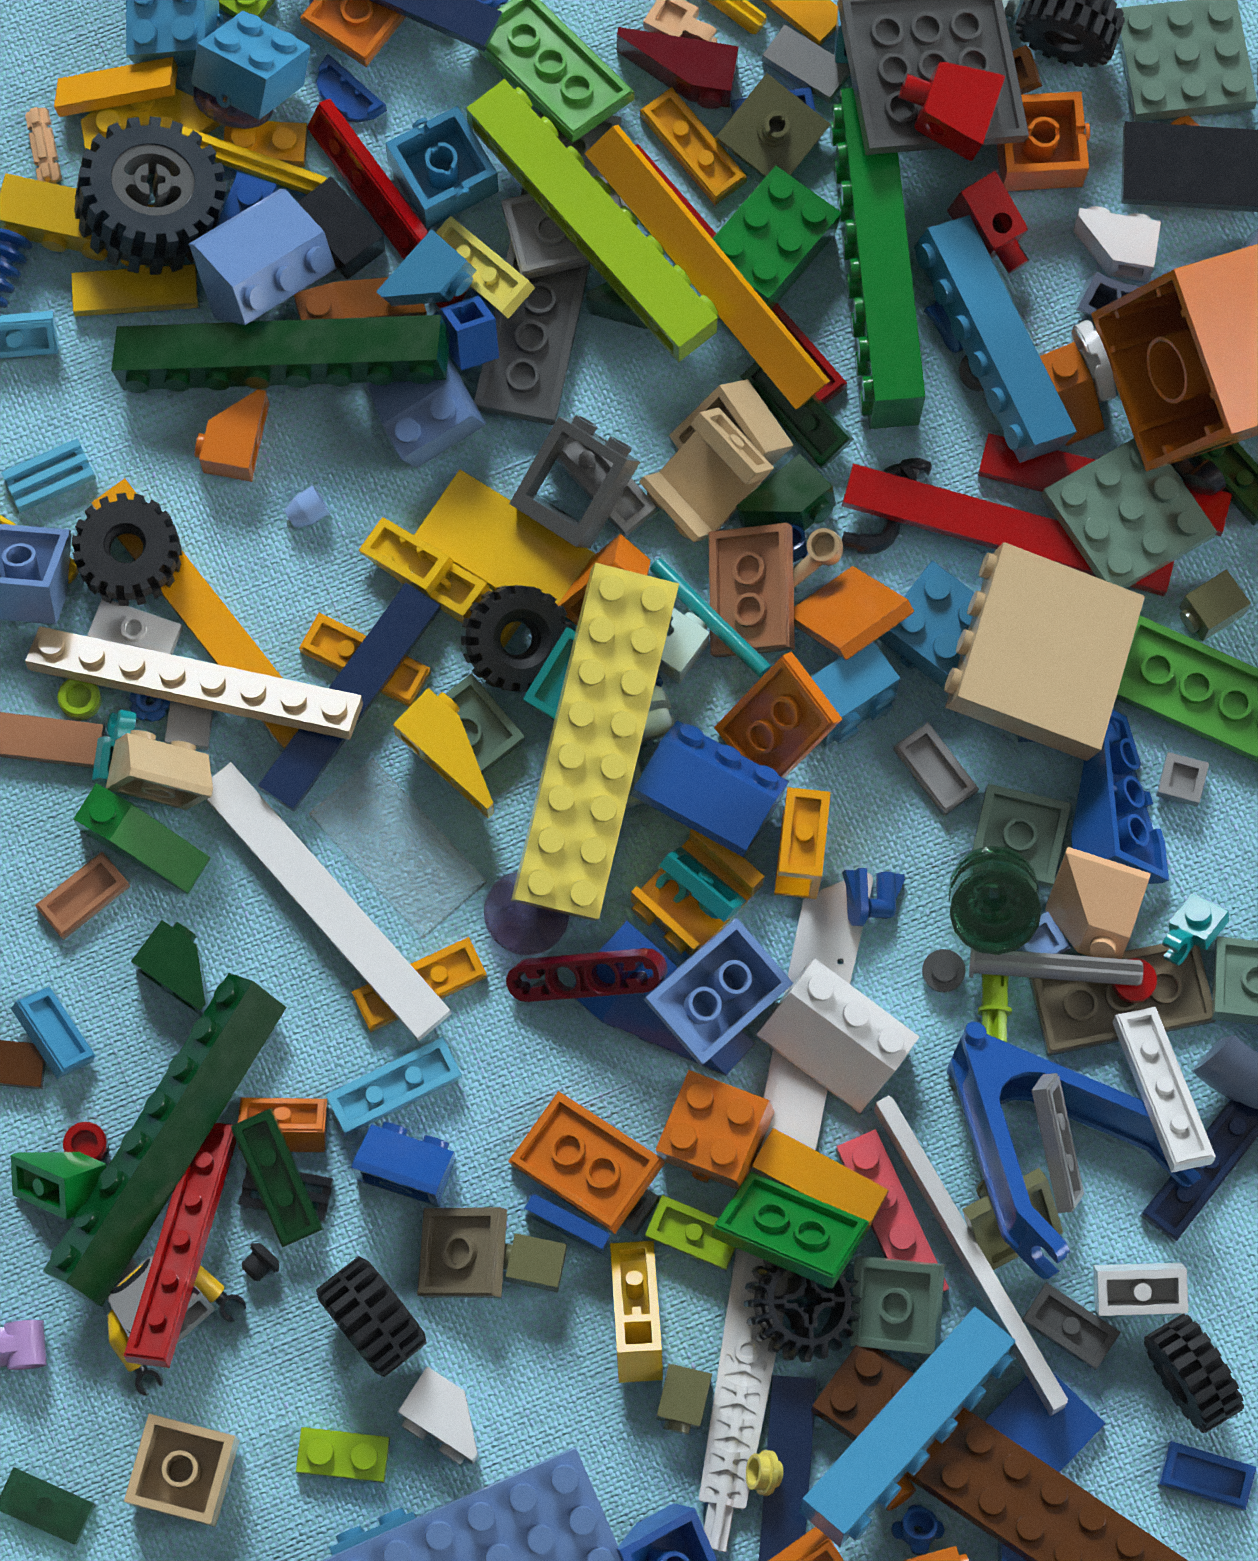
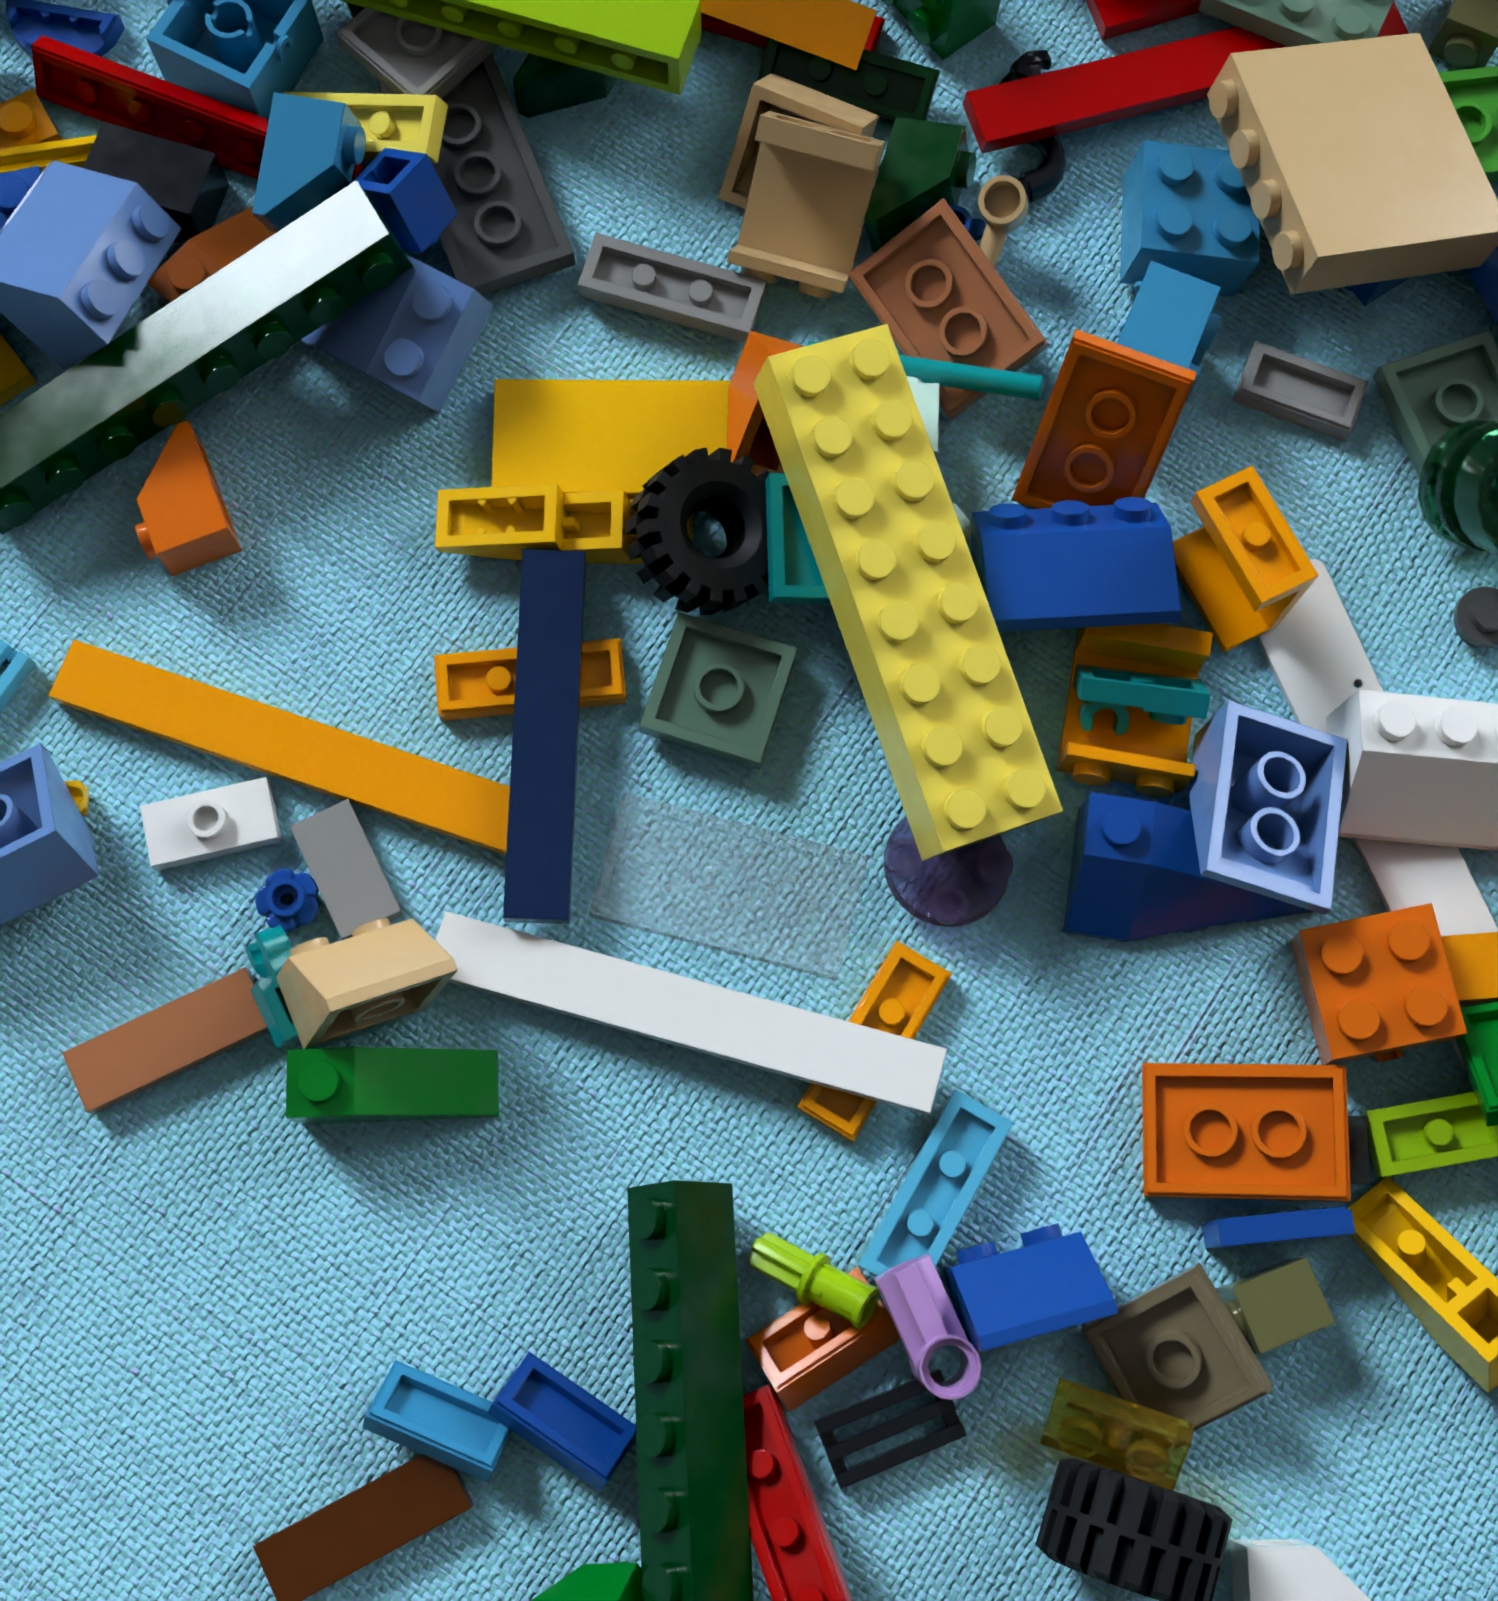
camera: 35 degrees left, 0 degrees up
(79, 699) = (191, 953): lime tile -> none
(82, 895) = (361, 1209): nougat tile -> none
(87, 1139) = (581, 1538): red tile -> none
(116, 1073) = (564, 1421): none -> blue tile
(131, 579) = (161, 758): black tyre -> none
(174, 964) = (546, 1222): dark green slope -> none
(194, 682) = (331, 839): plate -> none
(259, 1262) = (921, 1548): black piece -> none
(277, 1177) = (872, 1421): dark green tile -> none
(297, 1086) = (814, 1279): none -> lime axle
(306, 508) = (334, 538): light blue hose -> none
(338, 1141) = (927, 1323): none -> lavender piece
(402, 1269) = (1117, 1434): none -> clear yellow plate
(440, 740) = (708, 715): yellow slope -> none
(585, 532) = (627, 231): dark grey window -> none
(585, 971) = (1096, 901): dark red beam -> none
(850, 612) = (1097, 254): orange tile -> none
(862, 907) = (1342, 584): blue piece -> none

